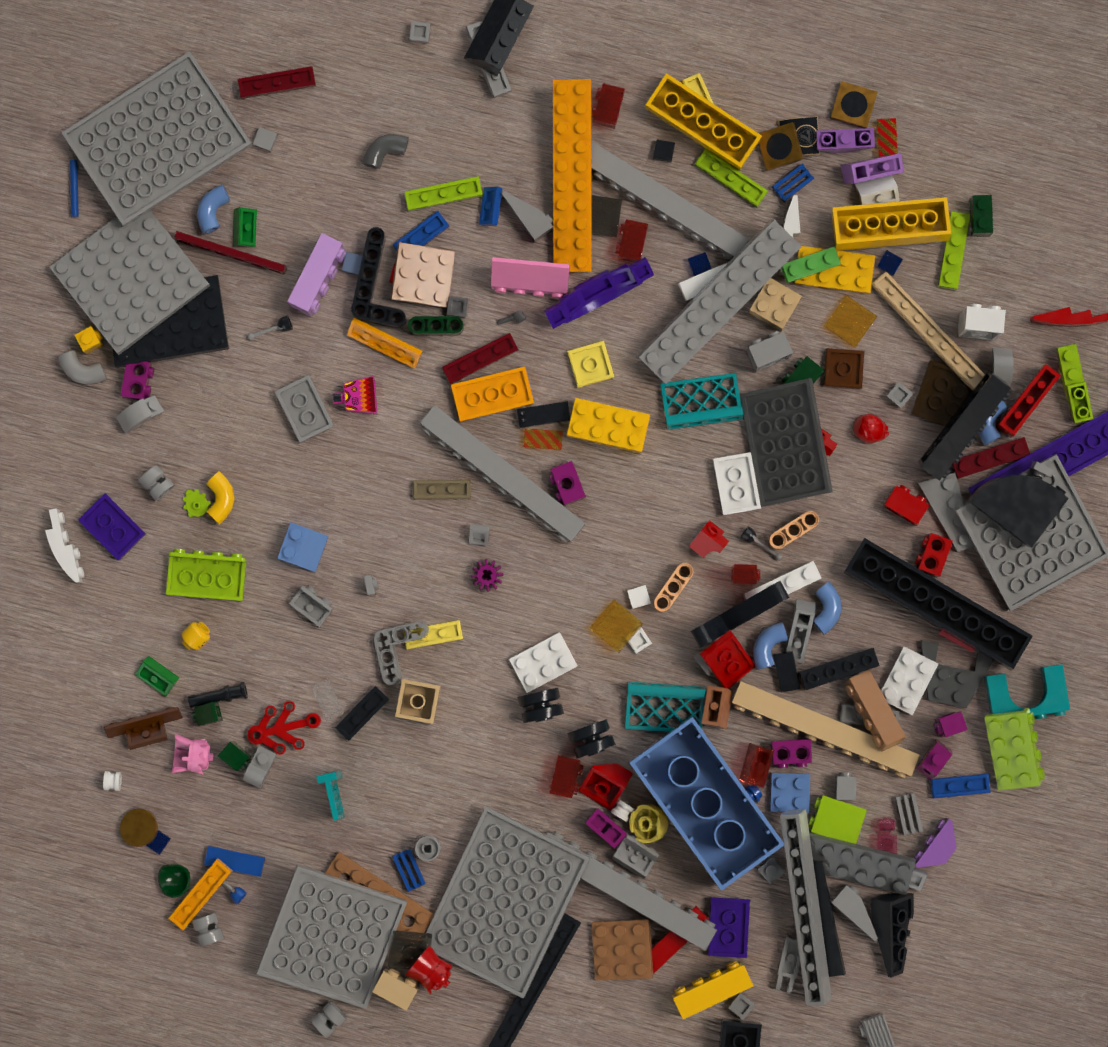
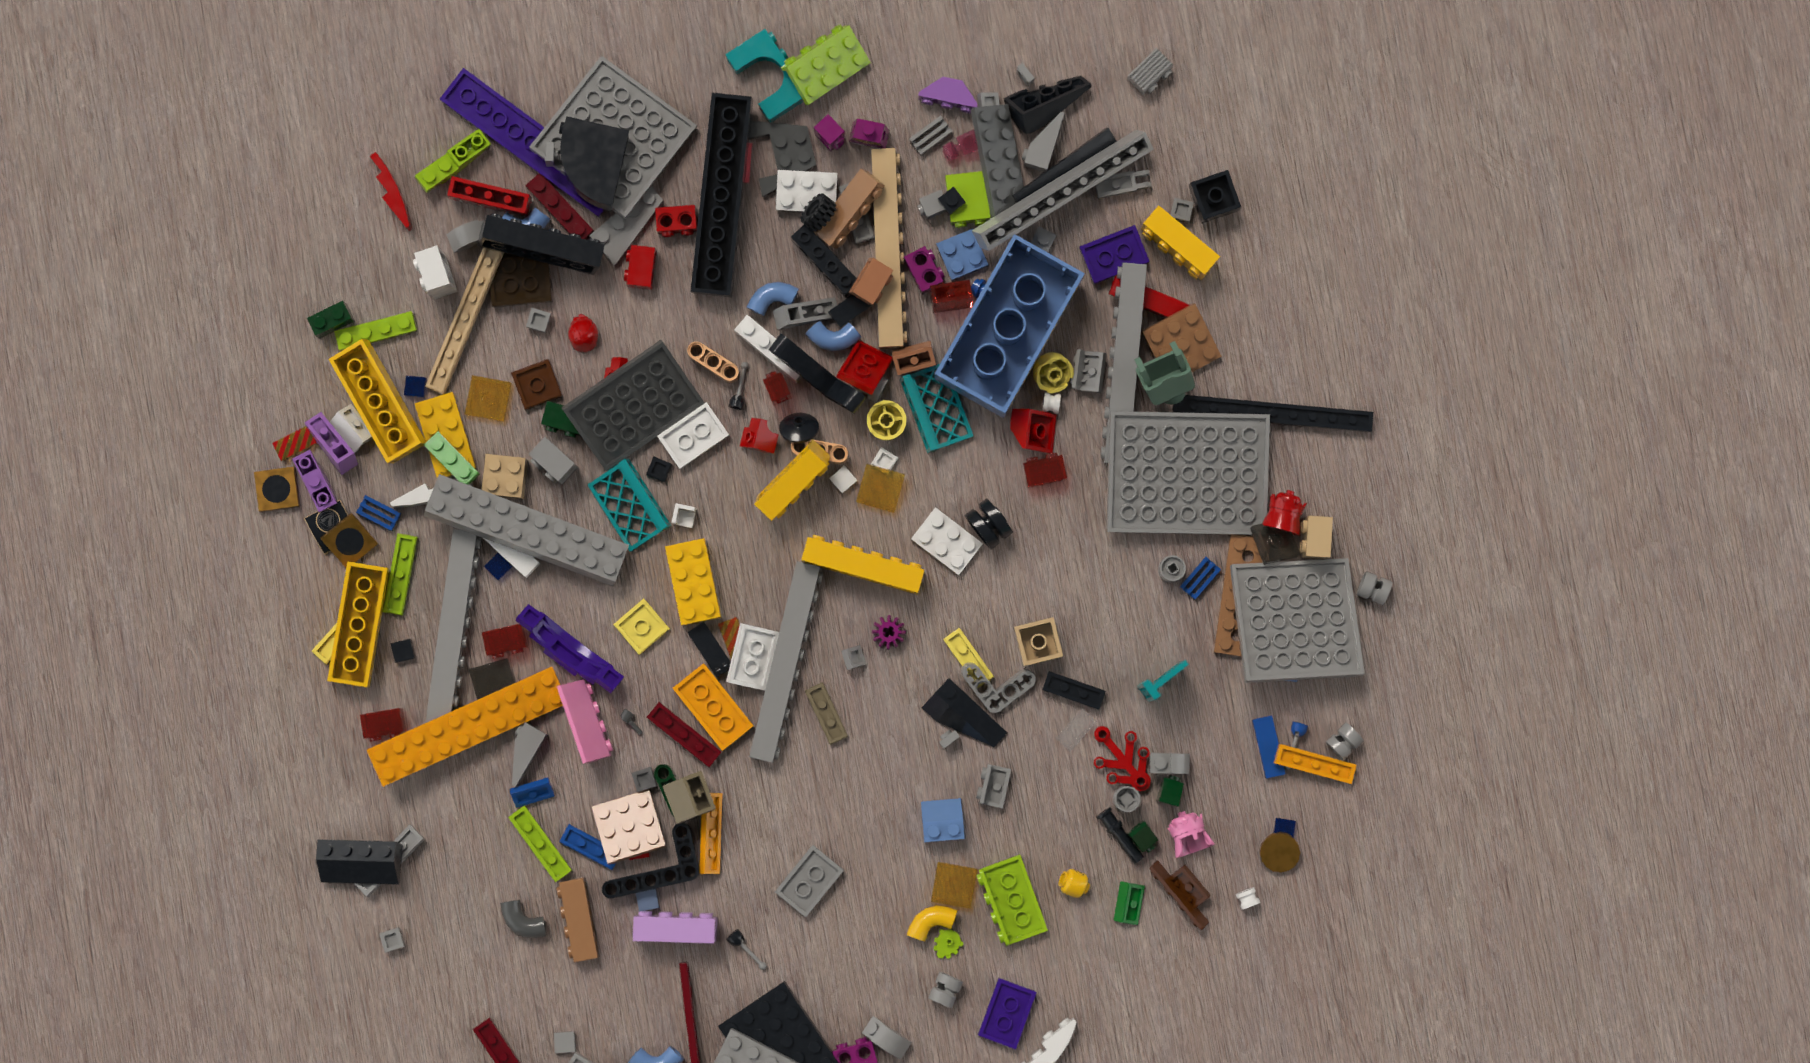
camera: 115 degrees left, 0 degrees up
(173, 880) = (1313, 795): dark green helmet -> none
(243, 532) = (954, 885): none -> clear yellow tile
(244, 227) = (659, 1022): green slope -> none
(246, 715) = (1126, 799): none -> light grey wheel
(358, 396) = (773, 834): torso -> none
(363, 197) = (578, 919): none -> medium nougat brick
(389, 605) = (958, 711): none -> black wedge
(422, 336) = (689, 797): none -> dark tan slope
(519, 447) = (752, 656): none -> white plate
(555, 577) = (862, 565): none -> yellow brick
(570, 495) = (754, 599): magenta brick -> none
(591, 738) = (997, 462): black wheel -> none
(597, 921) = (1166, 377): none -> sand green piece
(606, 828) = (1075, 410): magenta brick -> none
(656, 551) = (792, 480): none -> yellow brick
(670, 444) = (684, 515): none -> white panel
(672, 657) = (886, 420): none -> light yellow cylinder
(701, 578) = (799, 427): none -> black dish
(721, 441) = (659, 469): none -> black tile
(800, 700) = (871, 281): none -> nougat brick
(841, 804) = (951, 201): none -> black plate
(883, 681) = (818, 212): none -> black tyre
(925, 922) = (1025, 74): none -> light grey tile
(960, 785) = (882, 99): blue tile -> none

